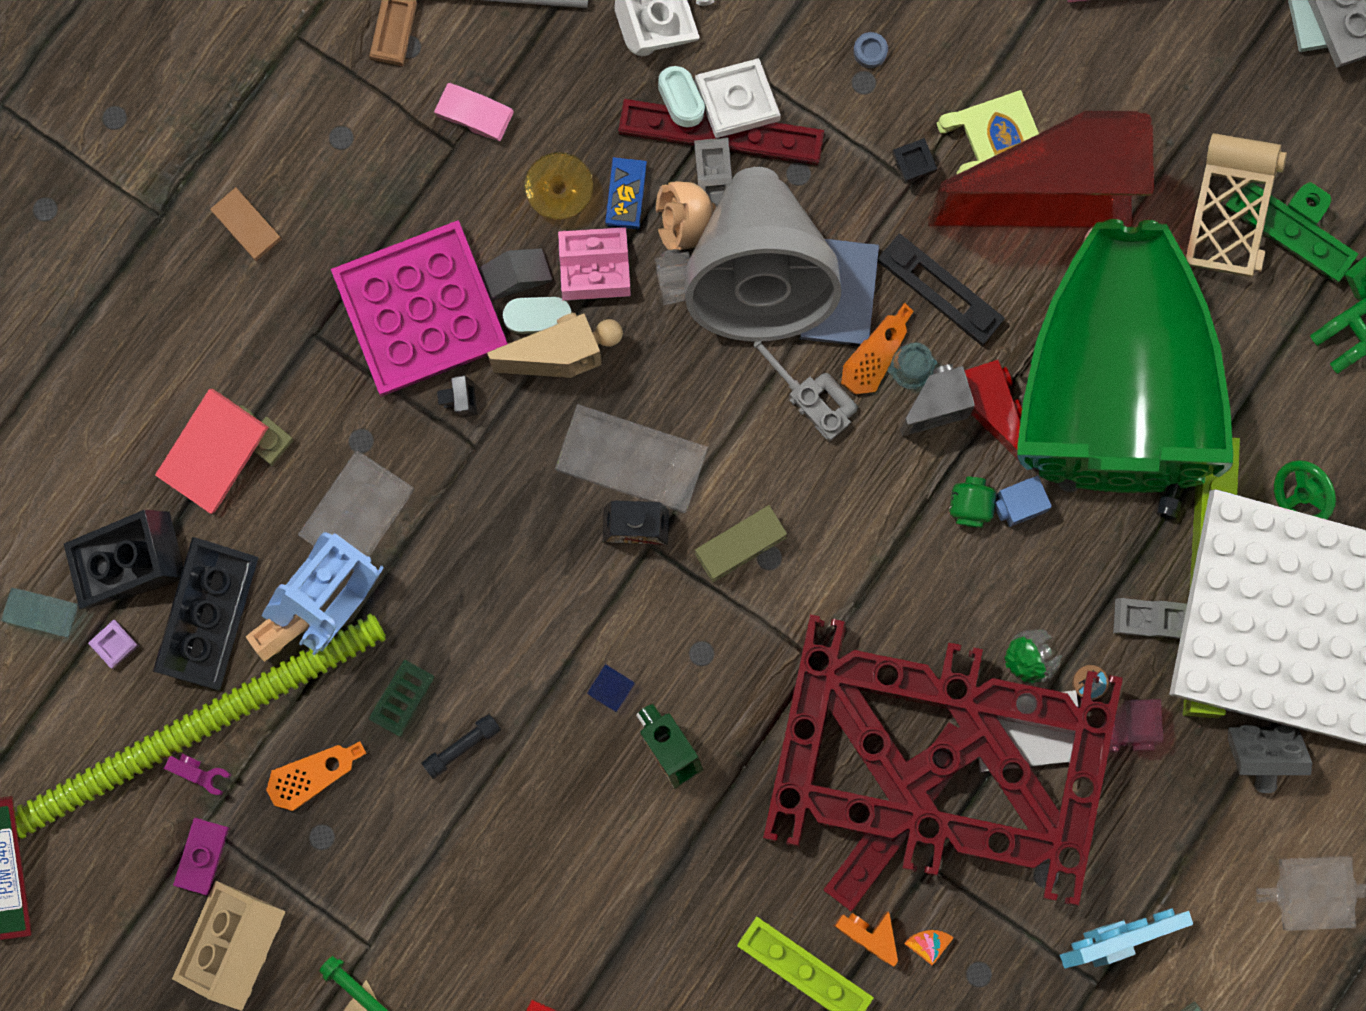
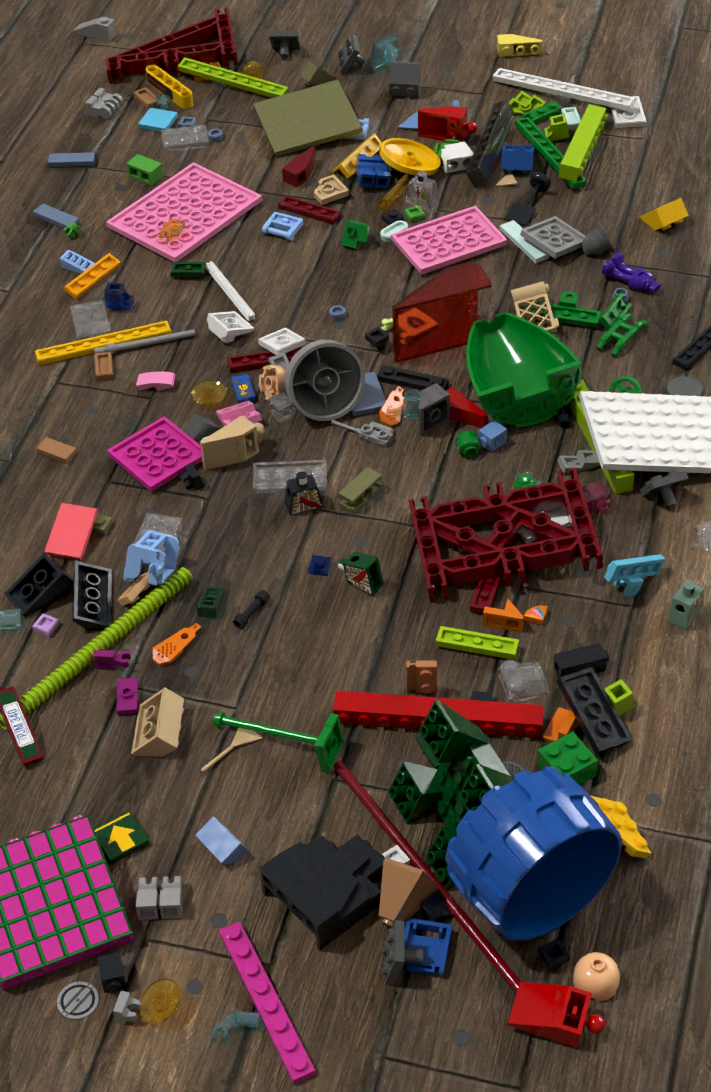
camera: 15 degrees left, 35 degrees down
(681, 96) = (254, 348): light aqua tile -> none

